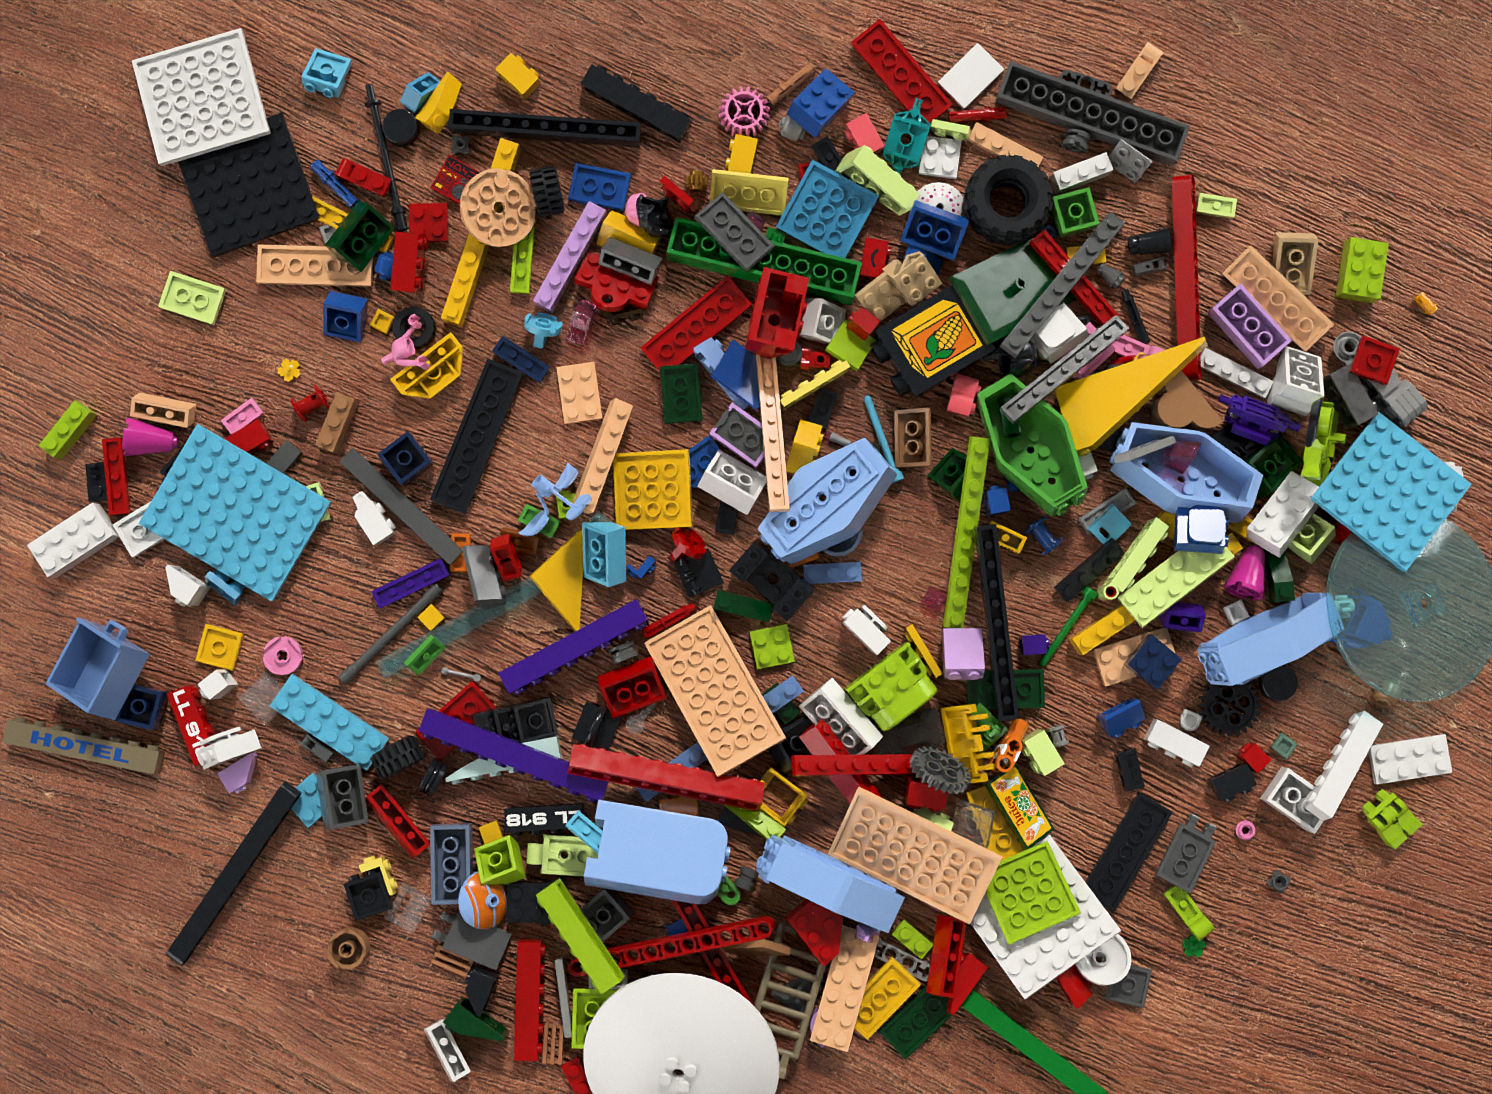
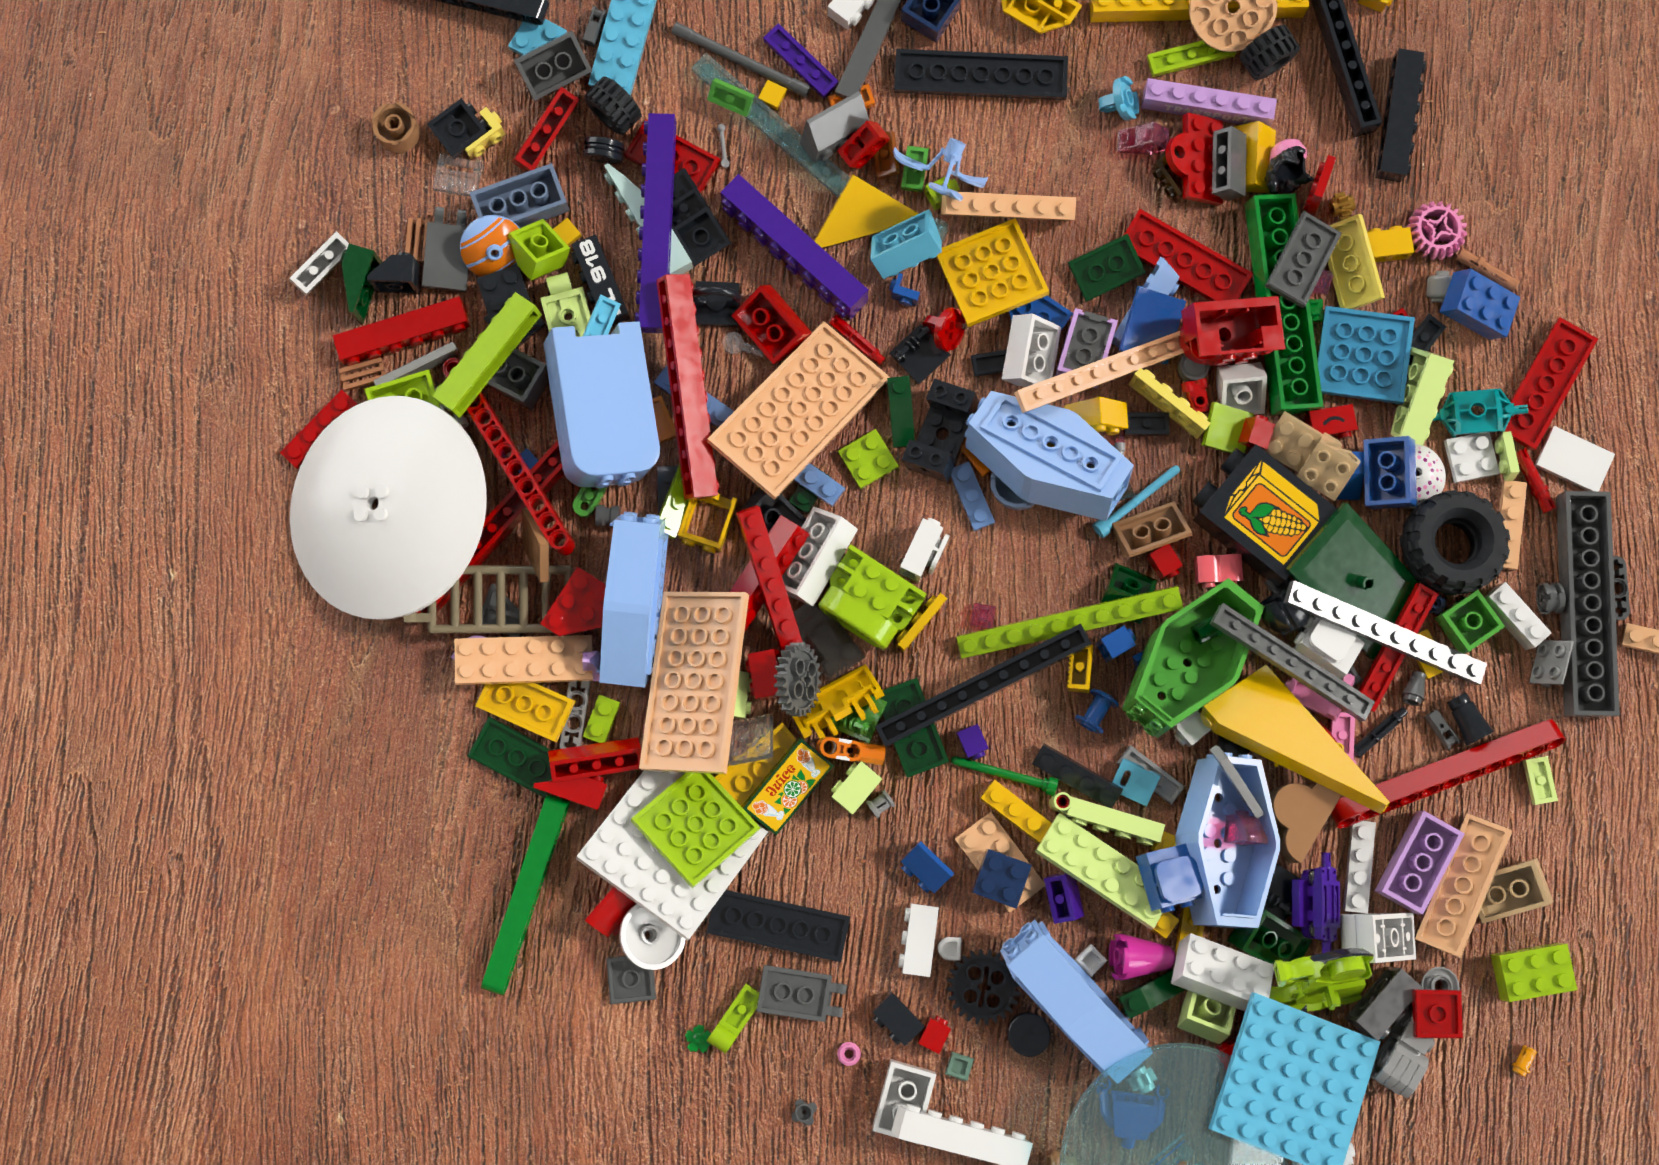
camera: 75 degrees right, 5 degrees down
(521, 359) = (1079, 91): dark blue plate -> none
(579, 393) = (1066, 164): light nougat plate -> none
(600, 186) = (1296, 109): blue tile -> none
(623, 652) = (806, 302): dark grey wheel -> none
(864, 133) = (1466, 363): coral brick -> none
(942, 436) = (1165, 562): none -> red brick
(963, 653) = (934, 664): lavender brick -> none
(1129, 769) = (872, 898): black hinge -> none

